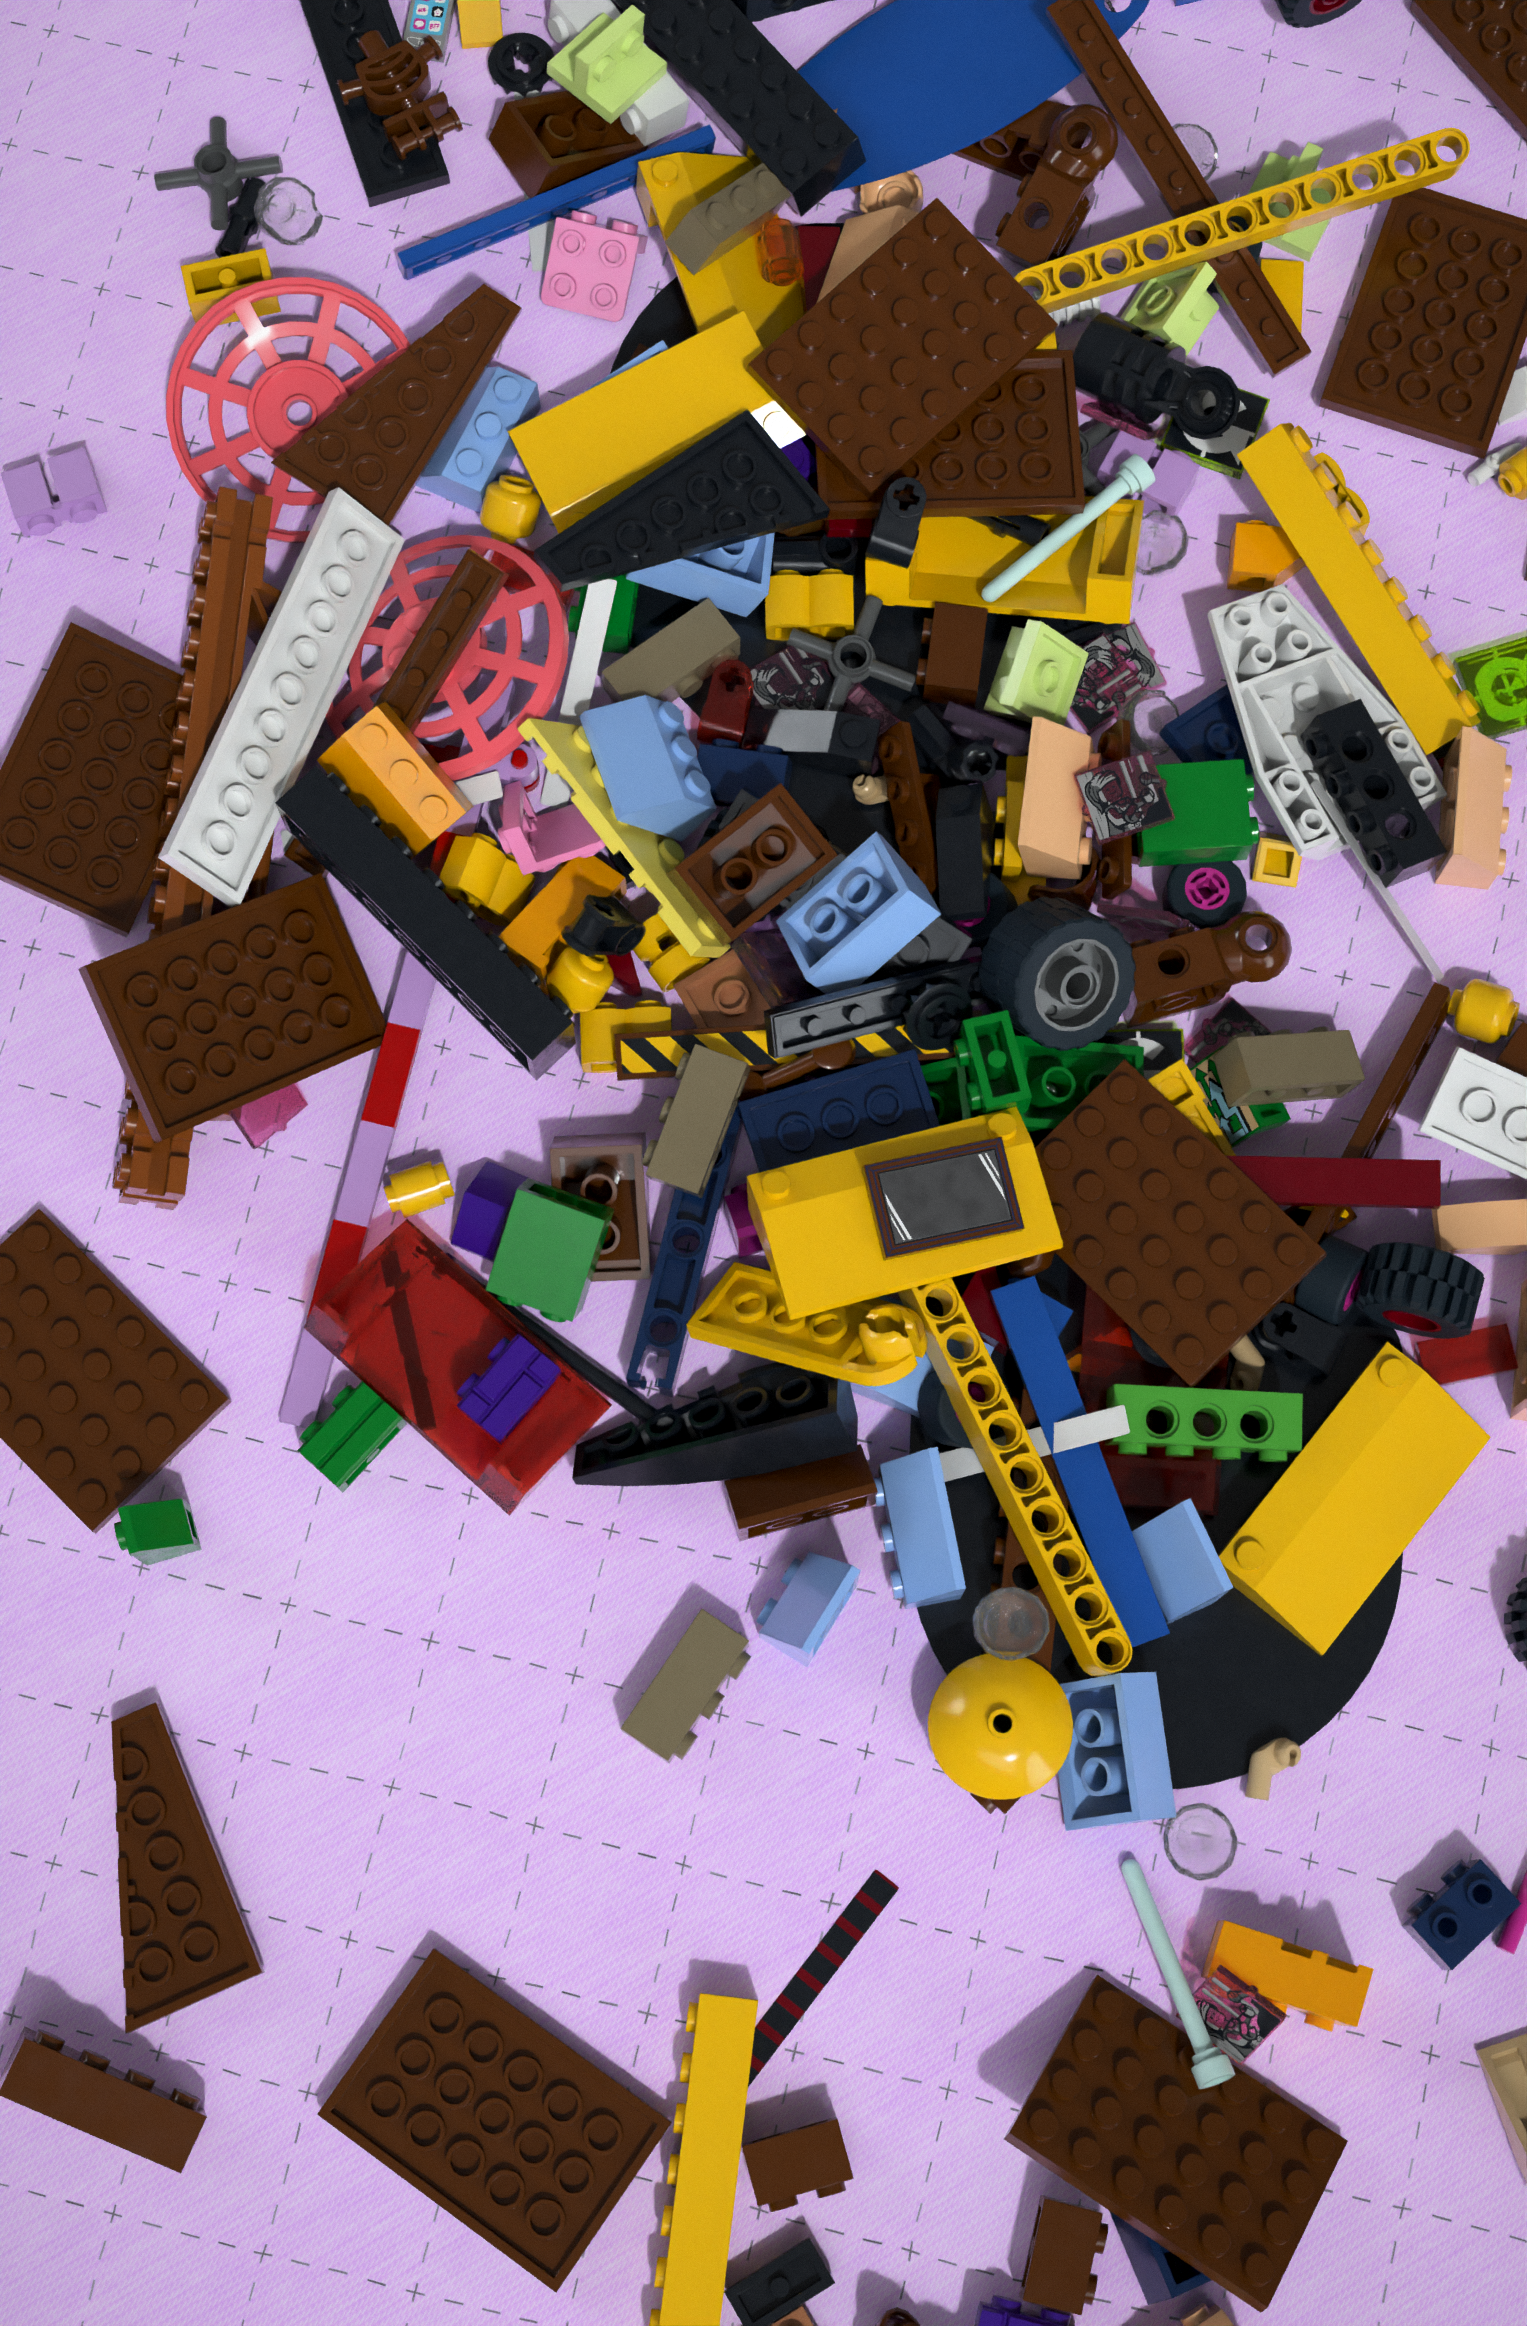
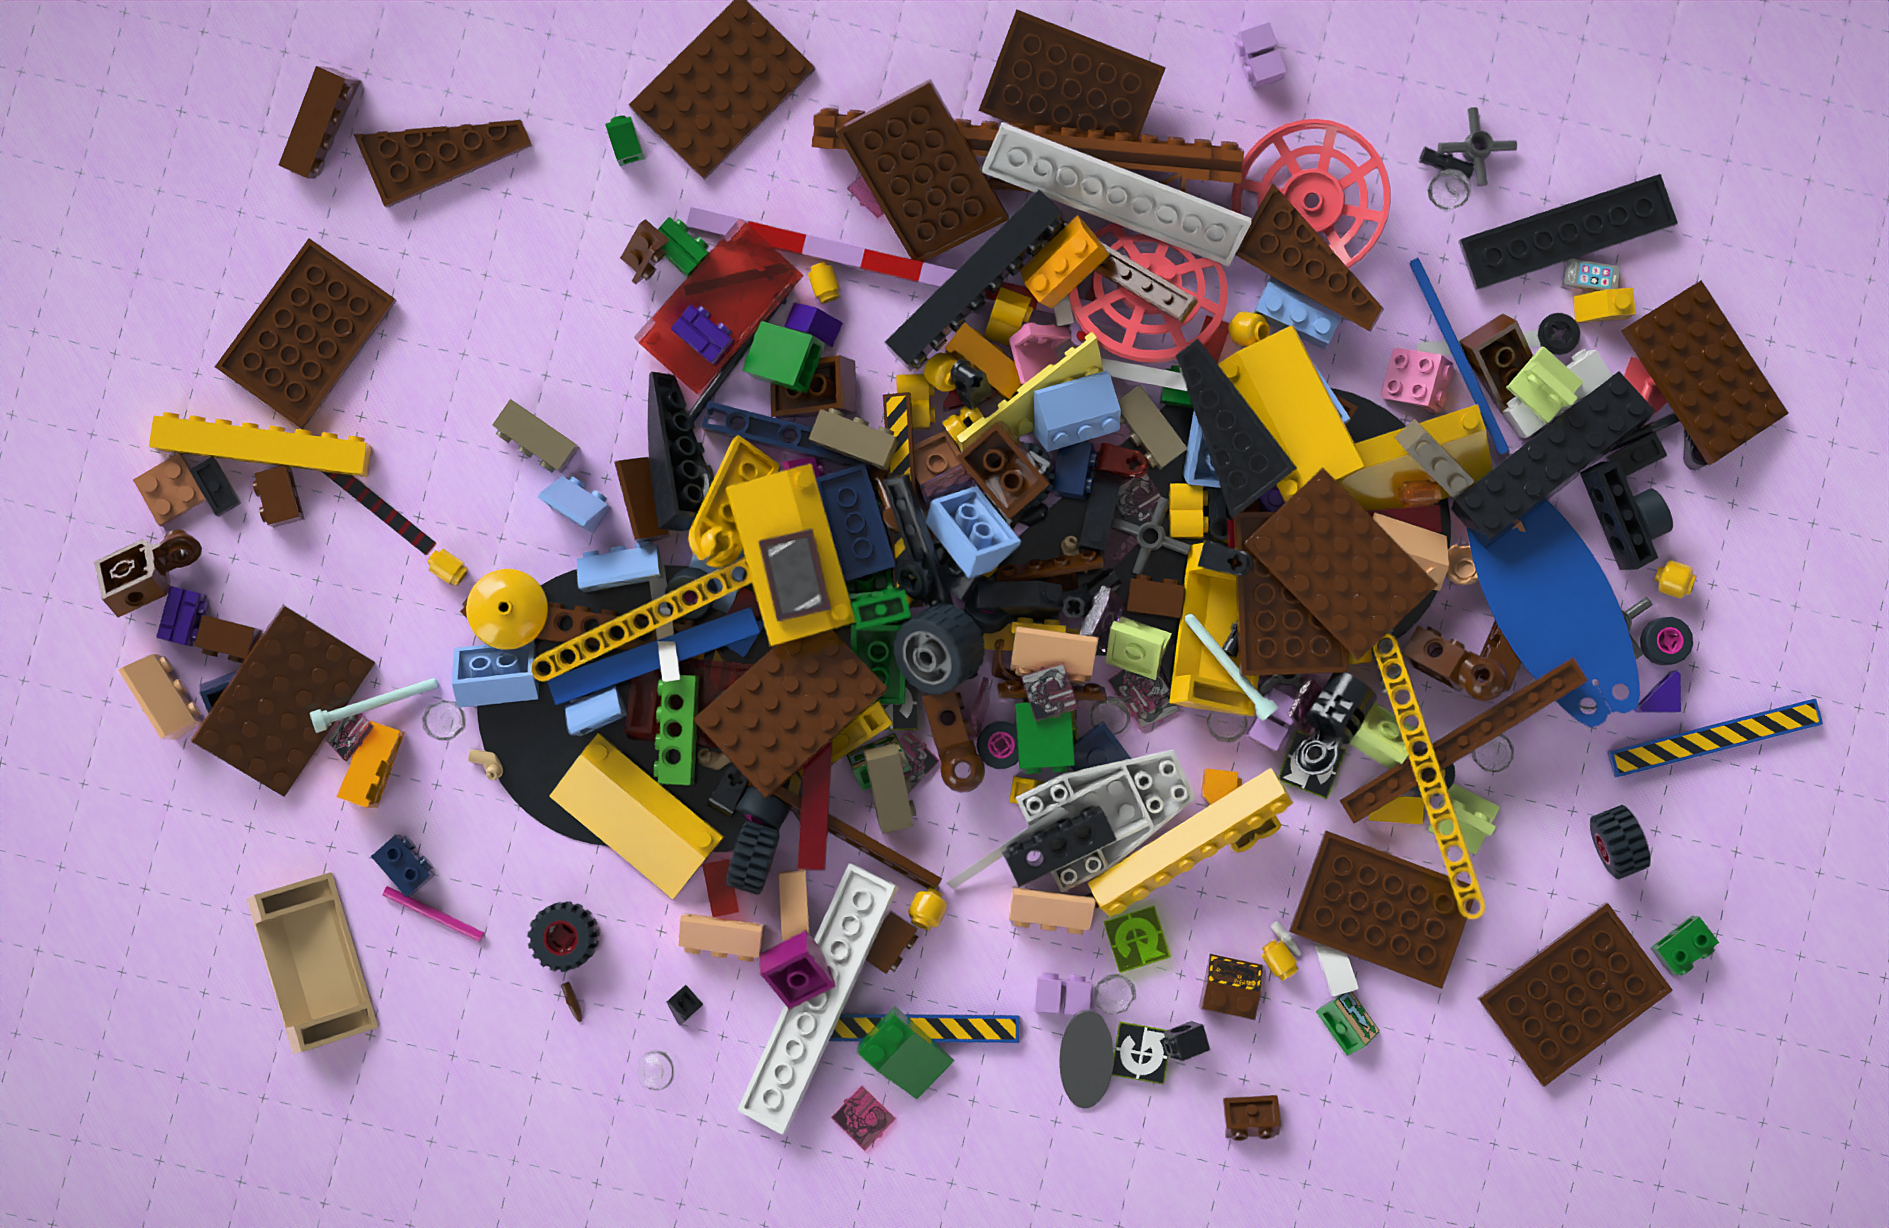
camera: 85 degrees right, 10 degrees up
(217, 278) = (1396, 154): yellow brick -> none
(355, 1493) = (644, 251): none -> reddish brown bracket
(395, 84) = (1549, 248): reddish brown piece -> none
(922, 1843) = (447, 567): none -> yellow brick
(1010, 1623) = (560, 613): clear hair -> none

